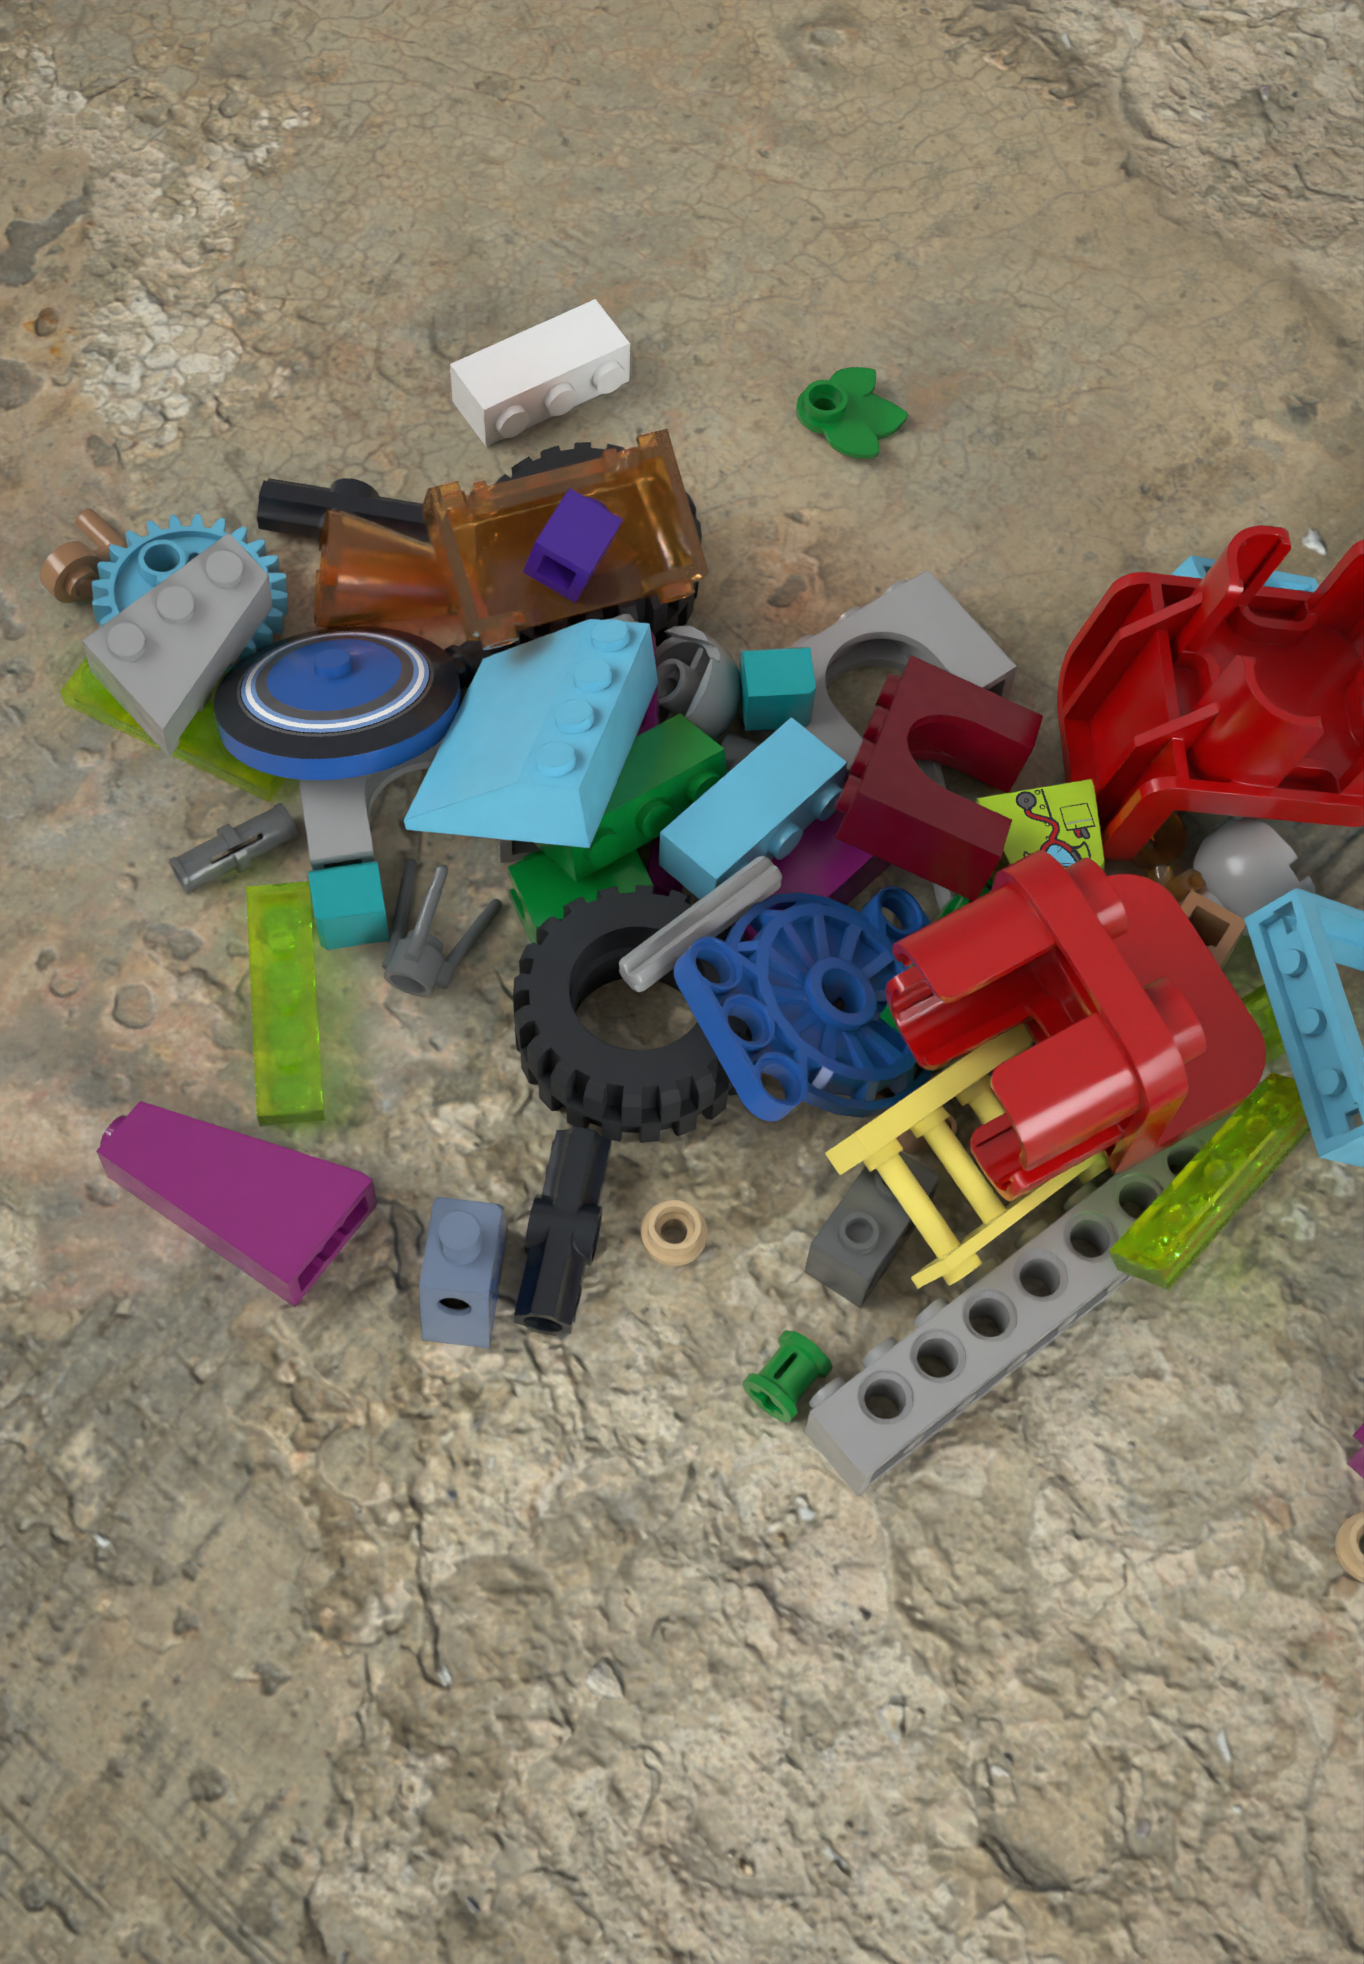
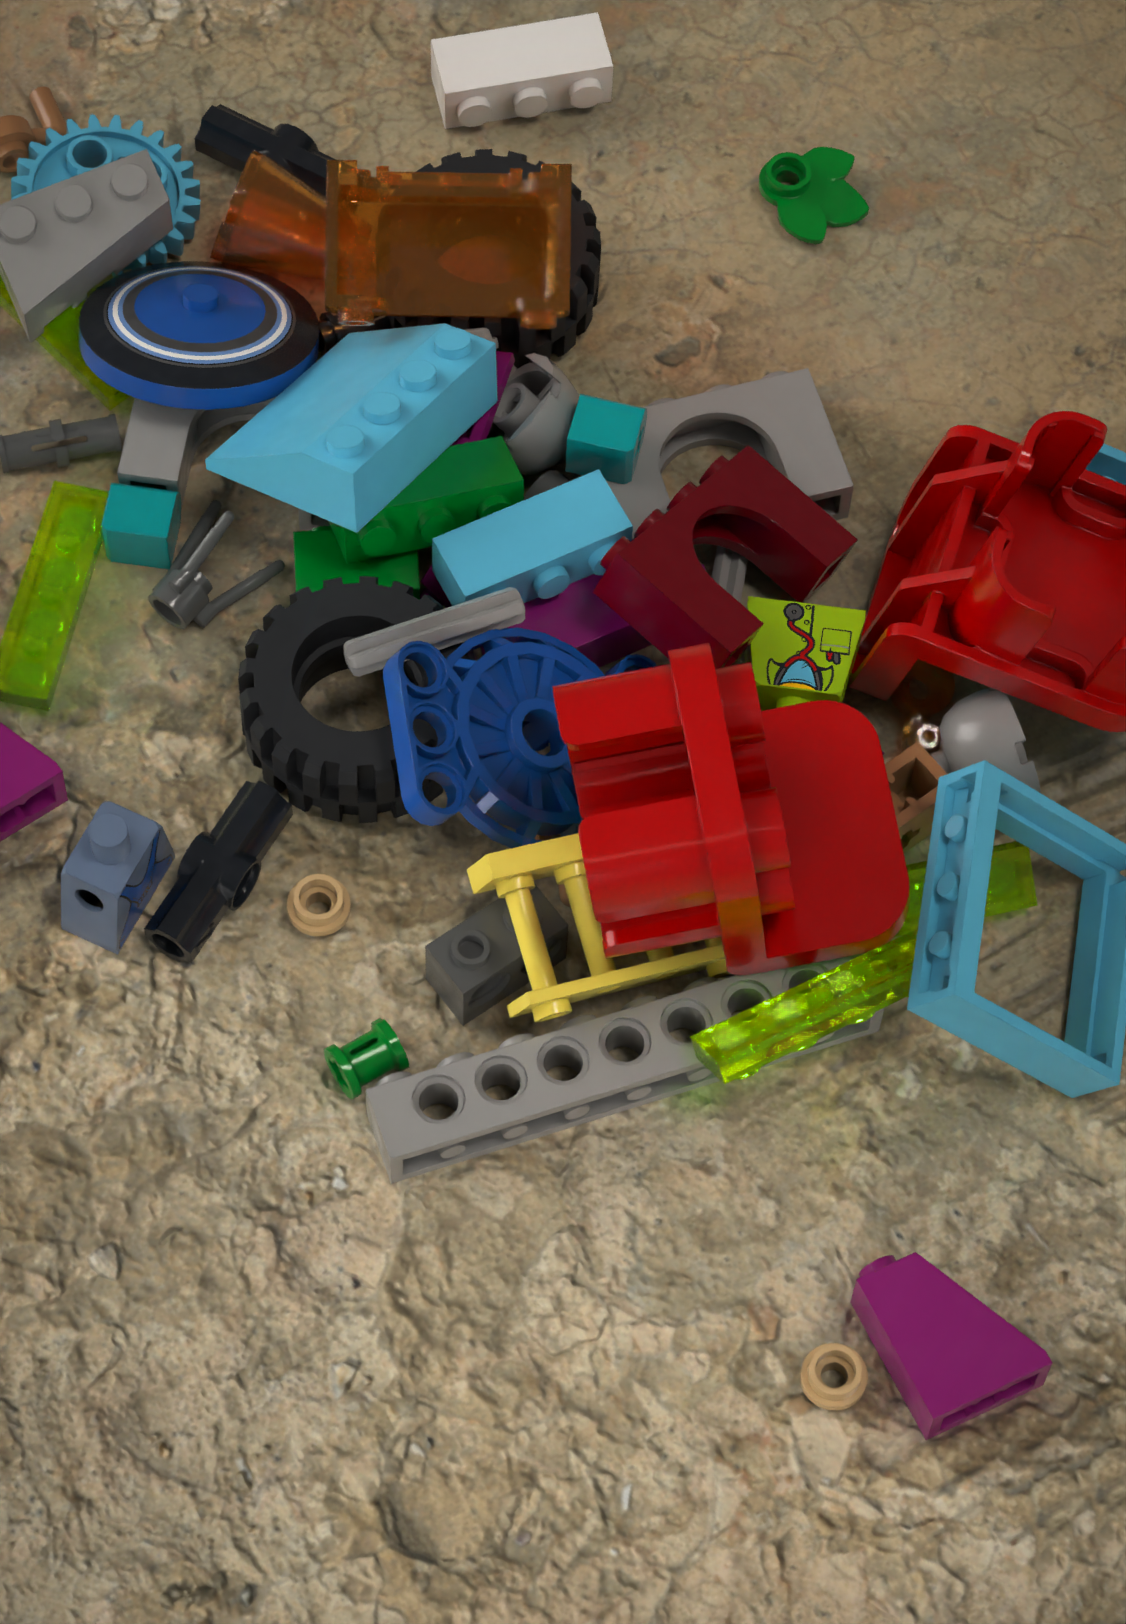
camera: 20 degrees right, 0 degrees up
(572, 545) = (455, 249): dark purple brick -> none

